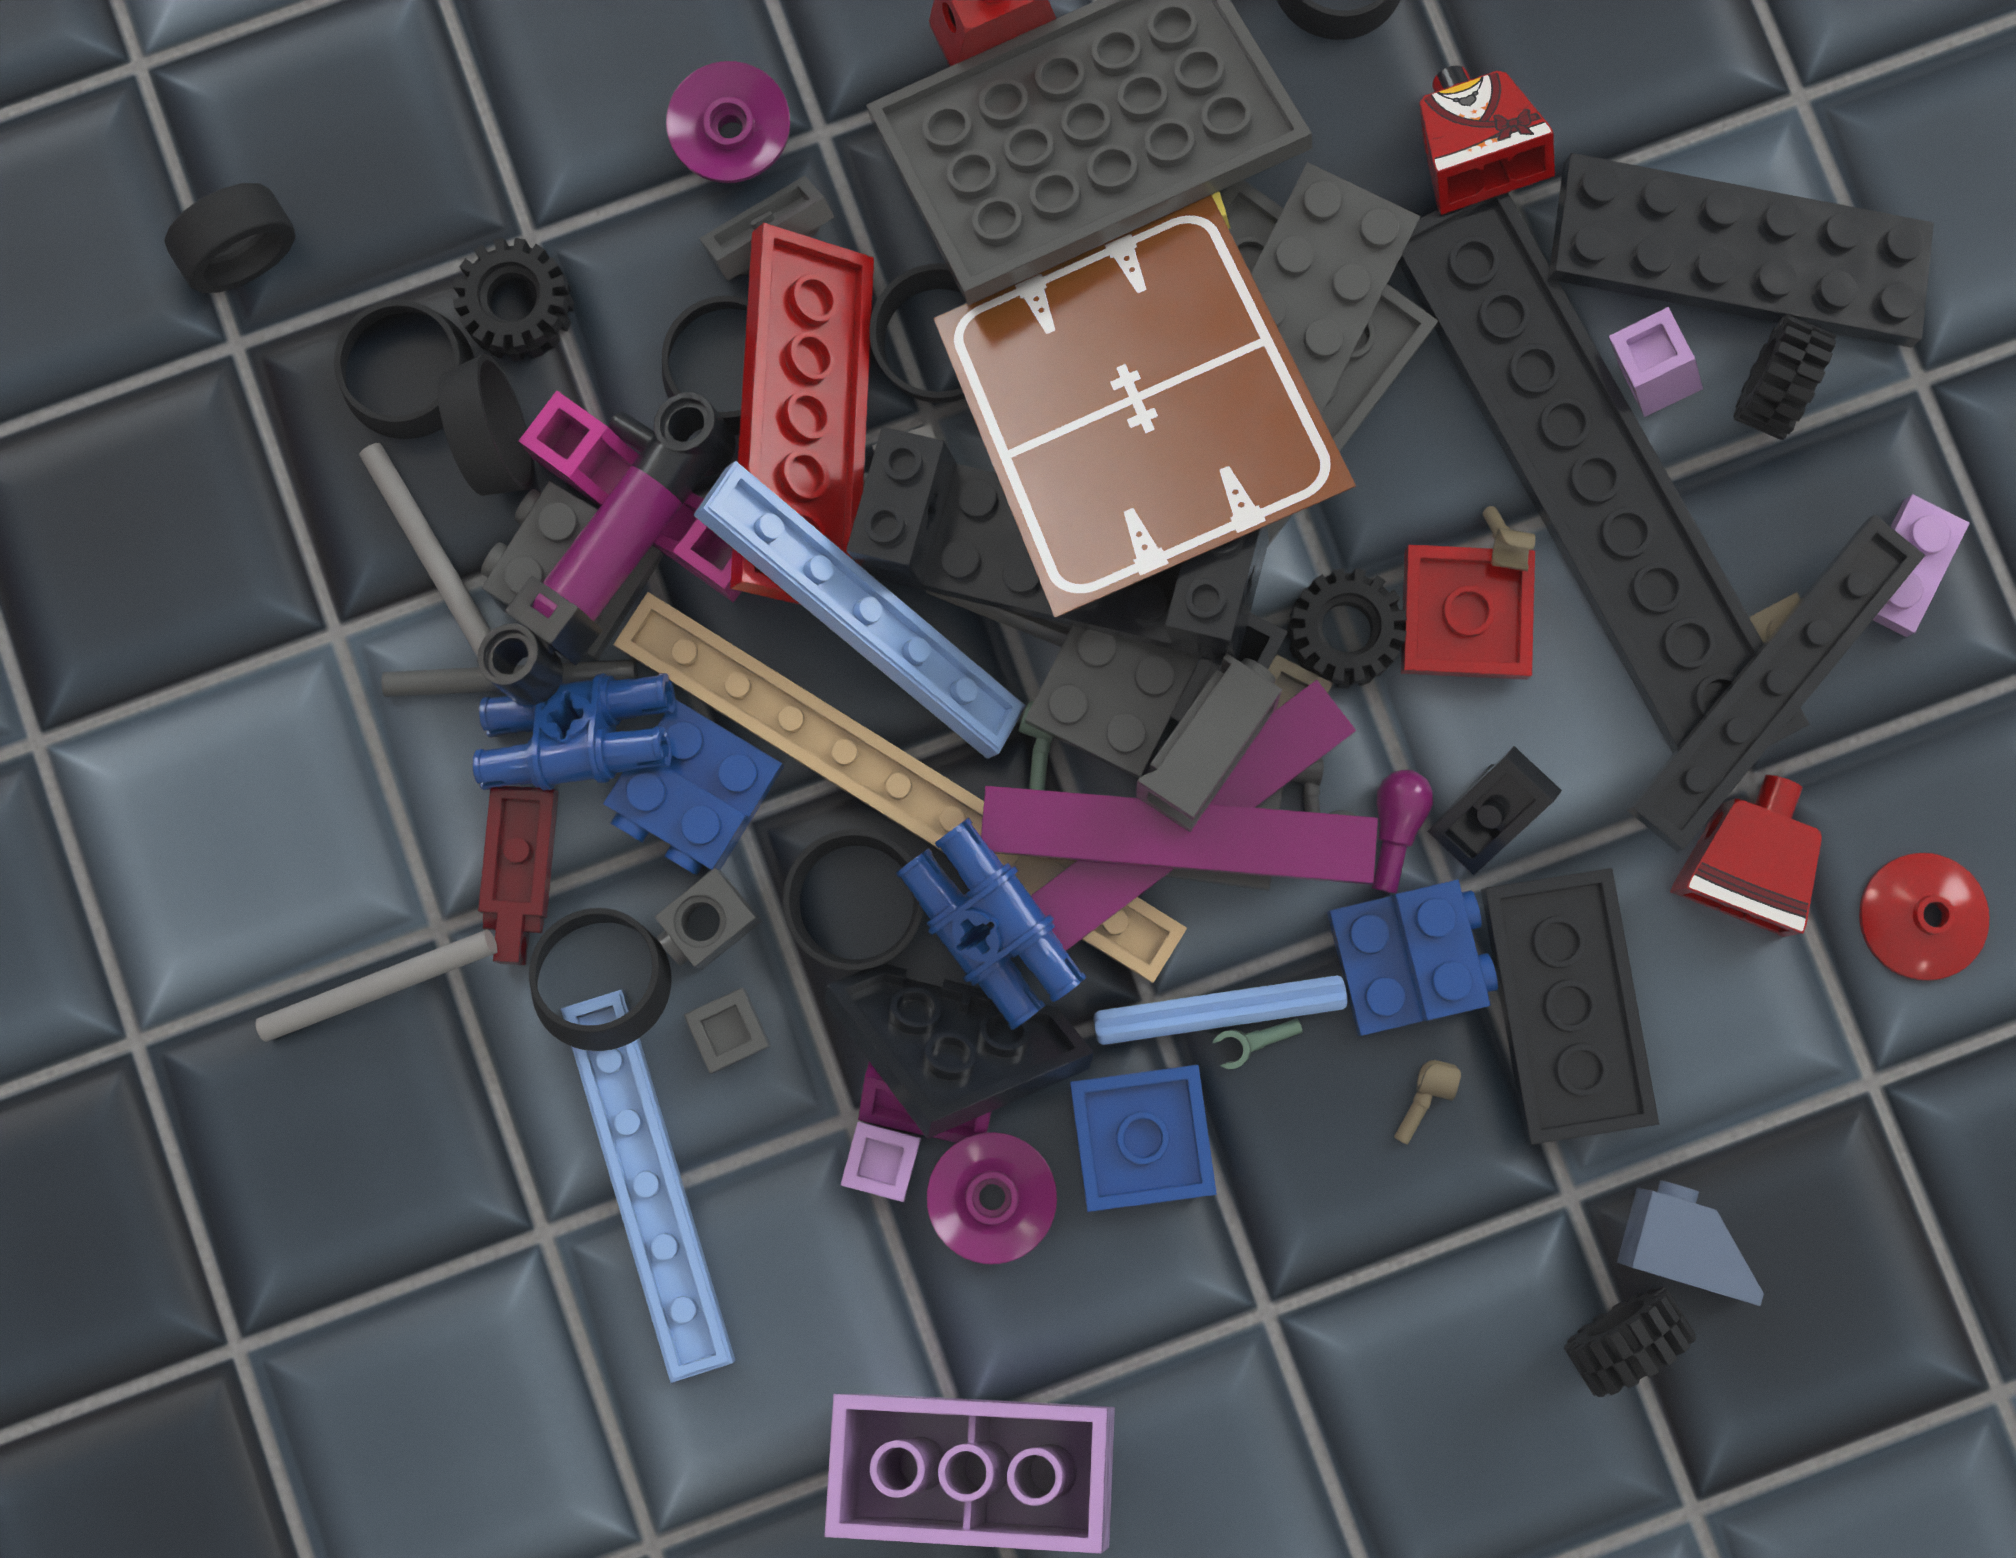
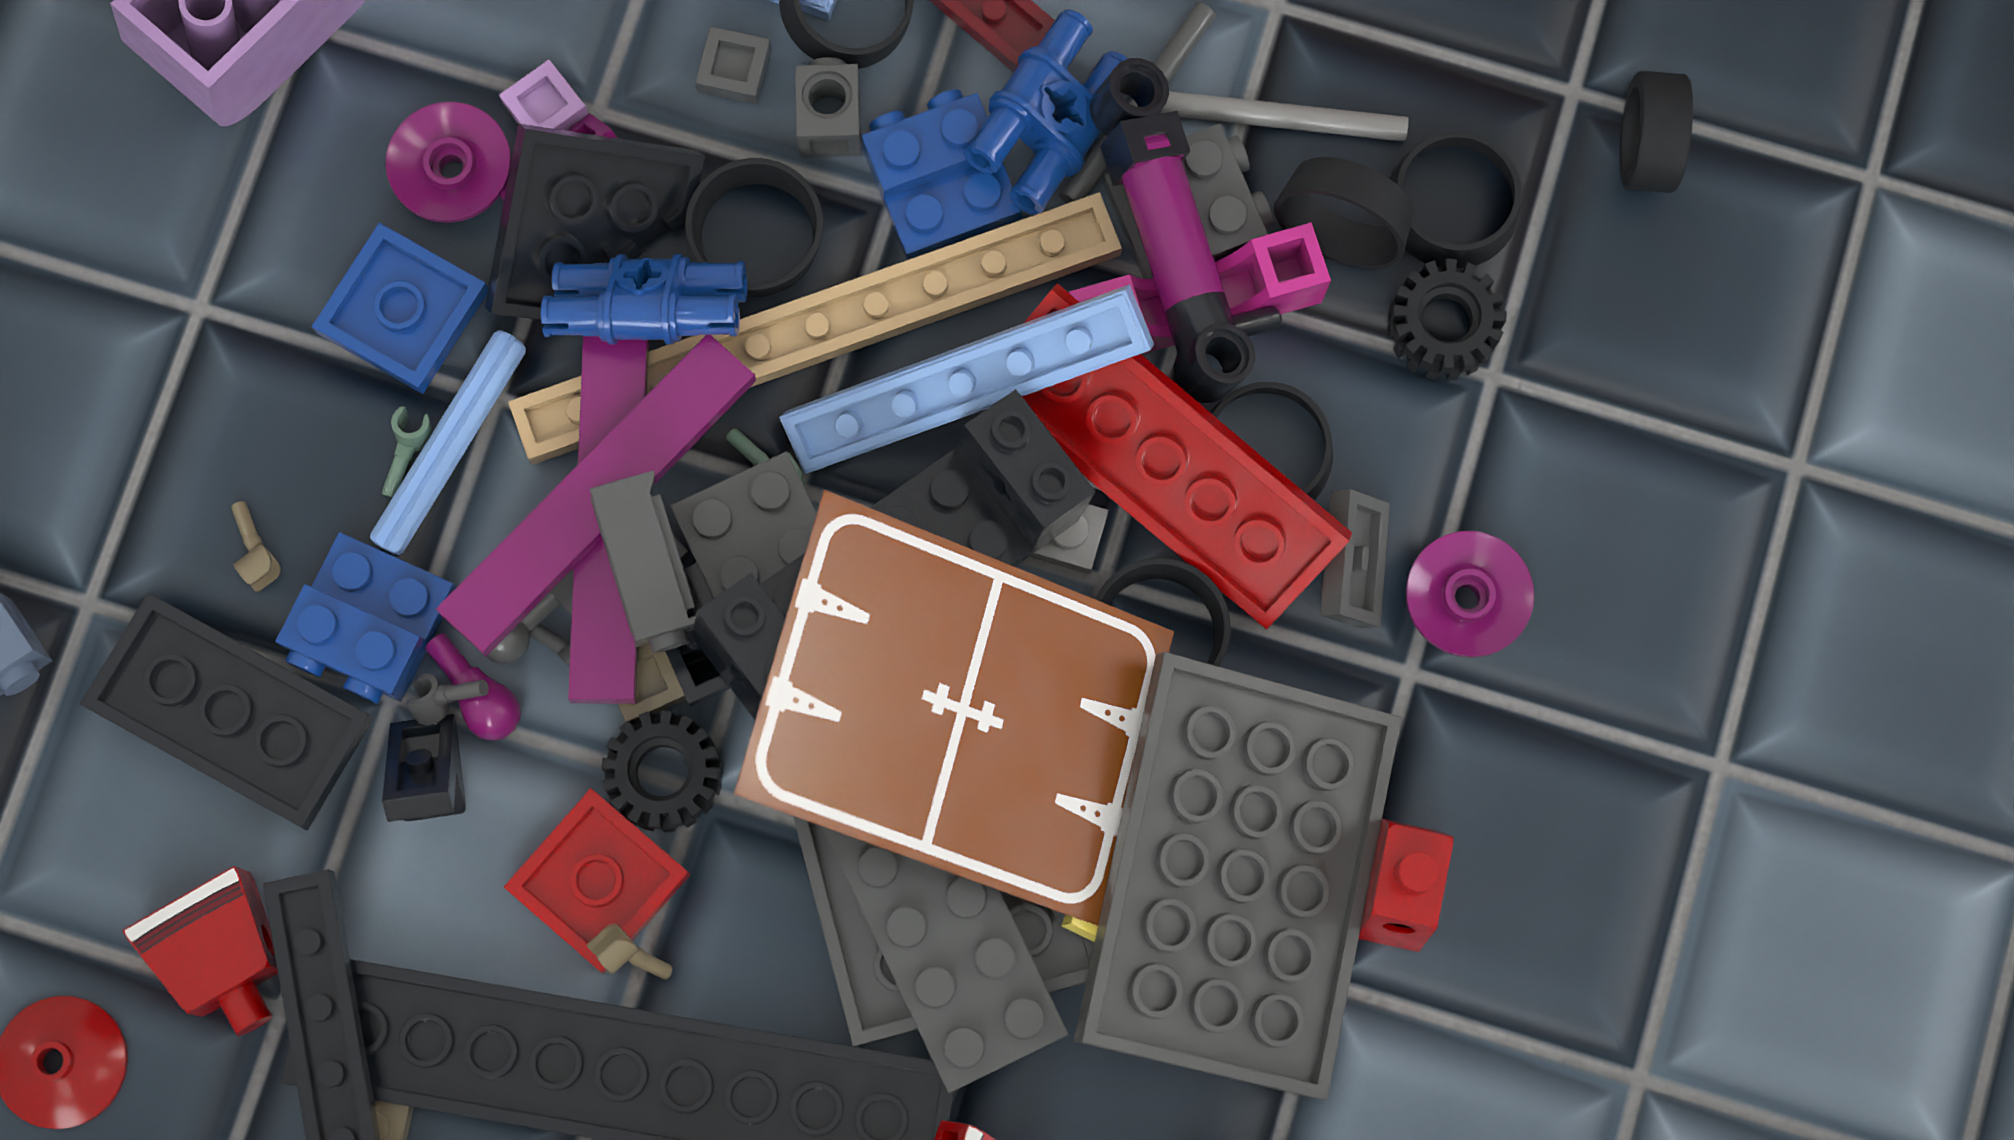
camera: 120 degrees right, 5 degrees down
(1424, 841) = (436, 698): none -> dark grey hand

